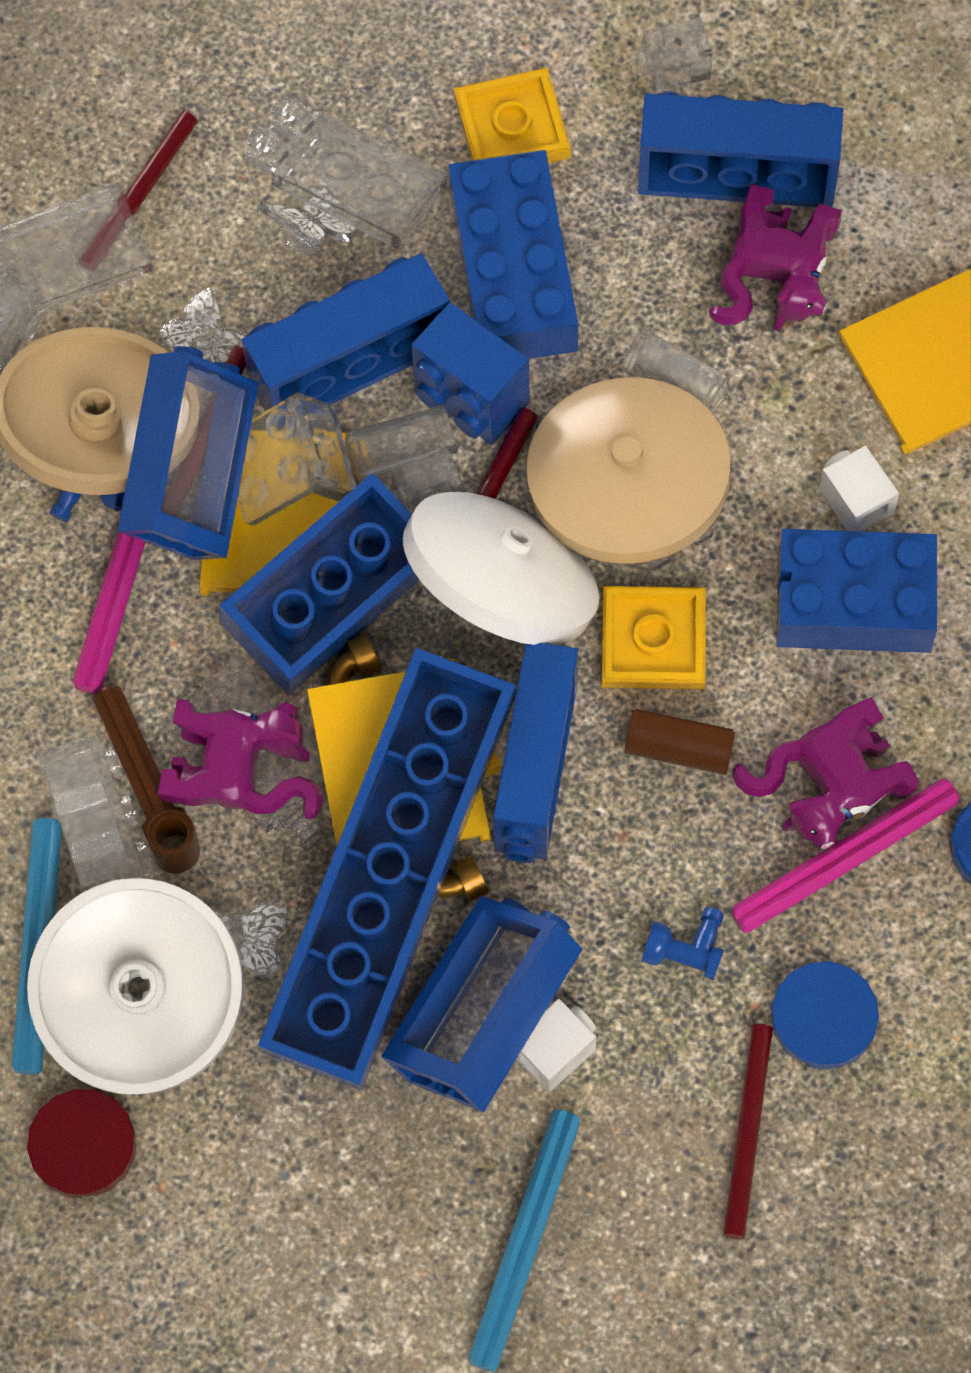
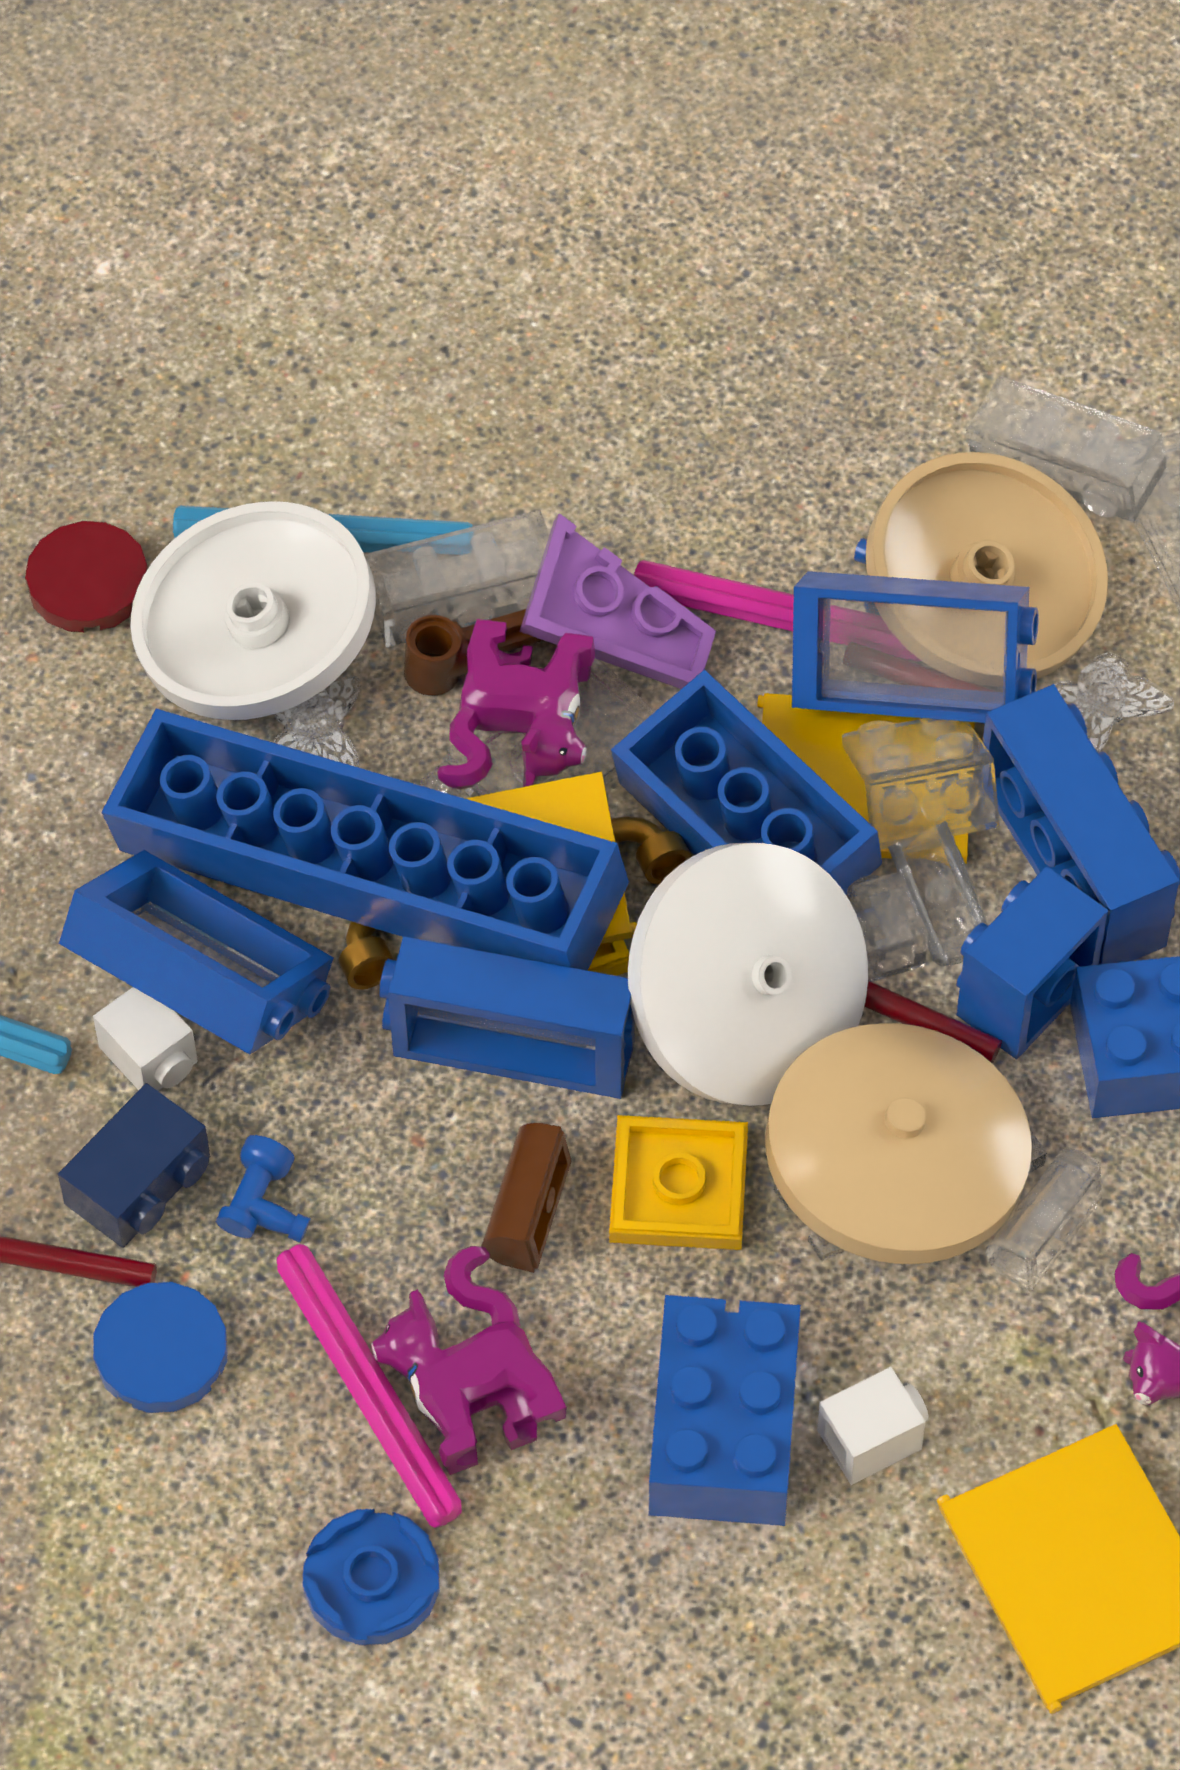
camera: 90 degrees right, 10 degrees down
(138, 697) = (630, 623): none -> medium lavender wing
(672, 1042) = (135, 1166): none -> dark blue brick

